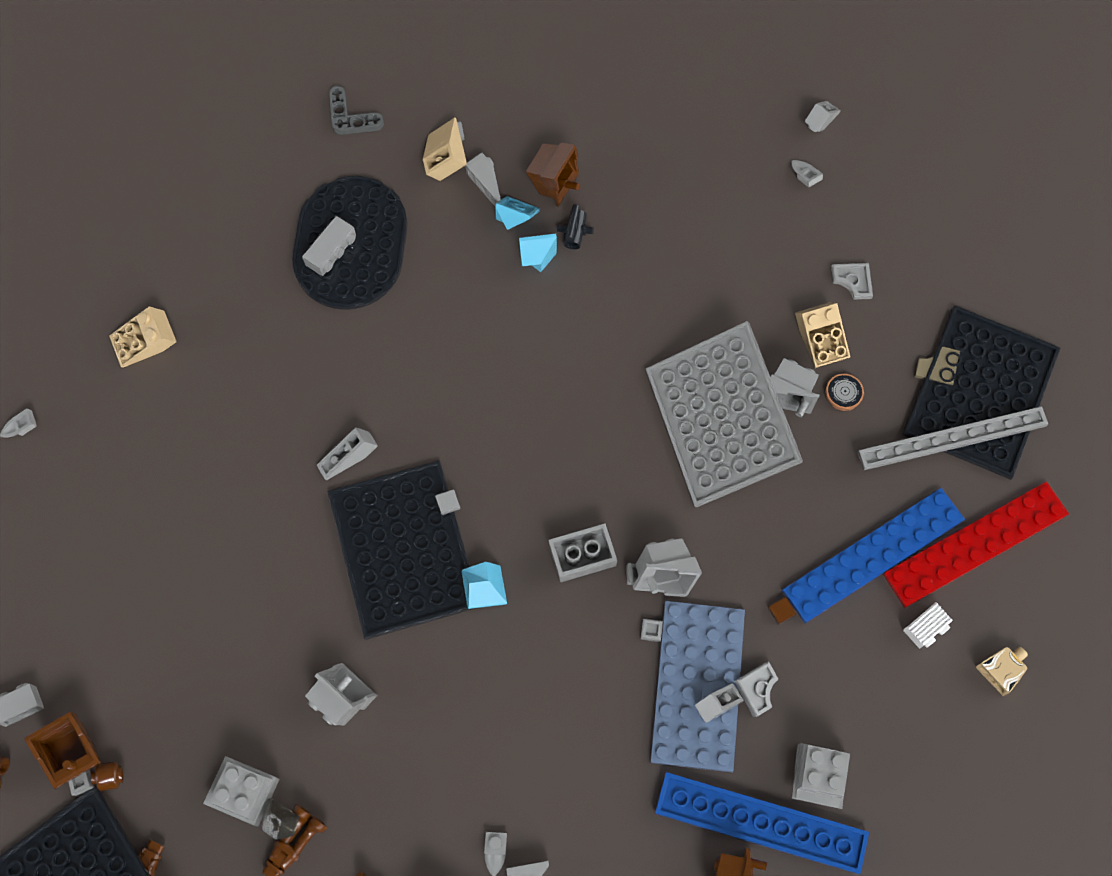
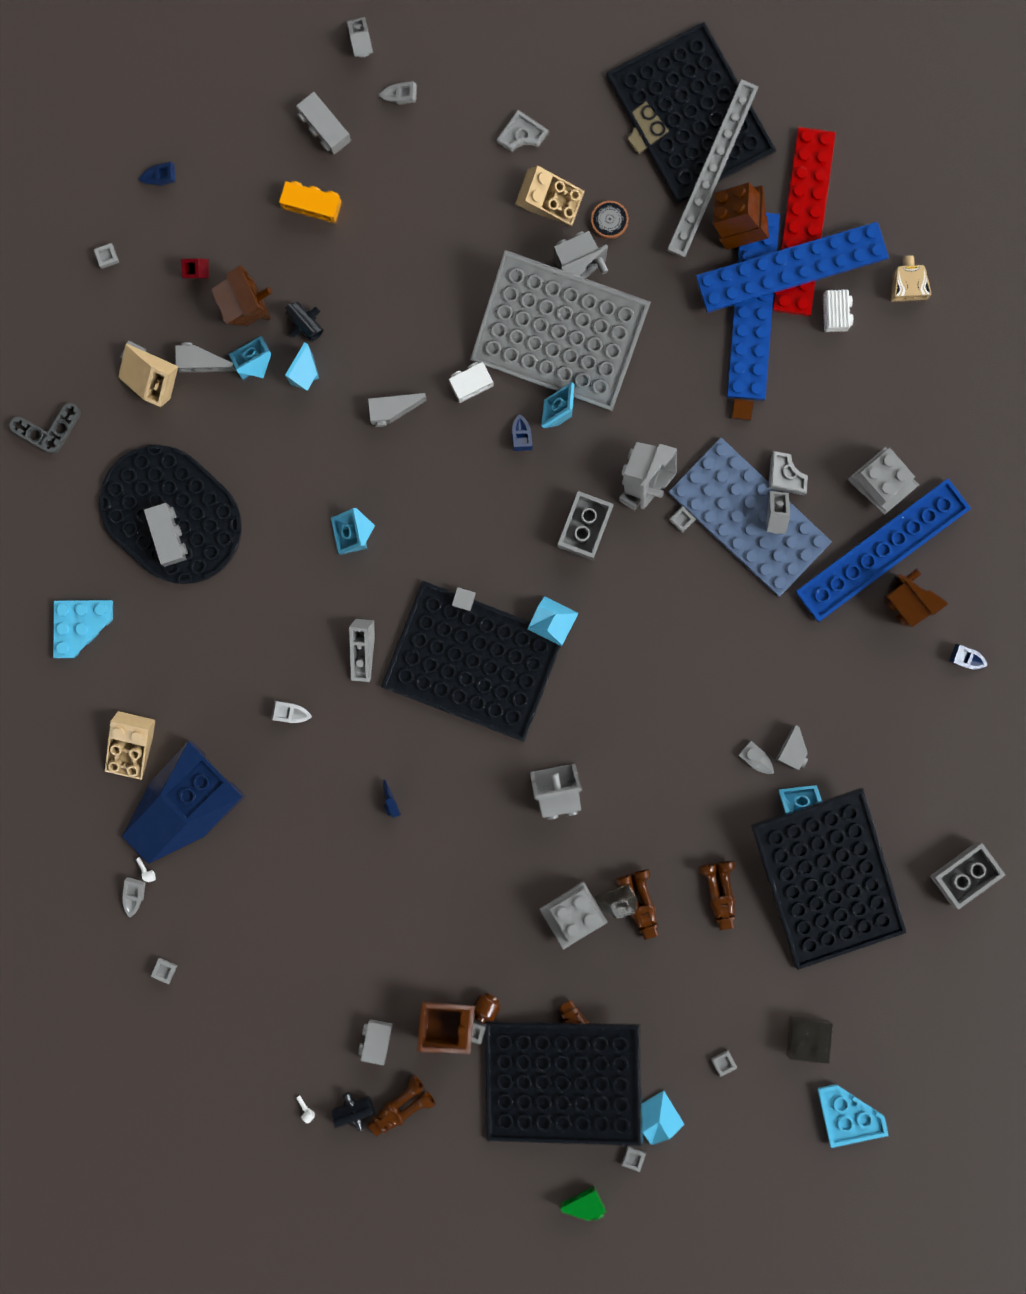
camera: 50 degrees left, 15 degrees up
(43, 424) = (147, 876): none -> white hand
(119, 409) = (180, 805): none -> dark blue wedge
(213, 237) = (78, 624): none -> medium azure plate
(233, 569) = (391, 806): none -> dark blue plate
(254, 436) = (289, 712): none -> light grey plate
(437, 378) = (351, 531): none -> medium azure slope
(512, 64) = (106, 255): none -> light grey plate
(551, 126) = (195, 268): none -> dark red brick
(559, 338) = (388, 409): none -> light grey slope
(602, 57) = (159, 174): none -> dark blue plate
(617, 450) = (521, 434): none -> dark blue plate
(628, 381) = (471, 381): none -> white brick
(662, 461) = (558, 407): none -> medium azure slope
(670, 169) = (310, 201): none -> light orange brick
(735, 137) = (323, 123): none -> light grey brick
(932, 561) = (792, 267): none -> blue plate
(934, 485) = (740, 215): none -> reddish brown piece

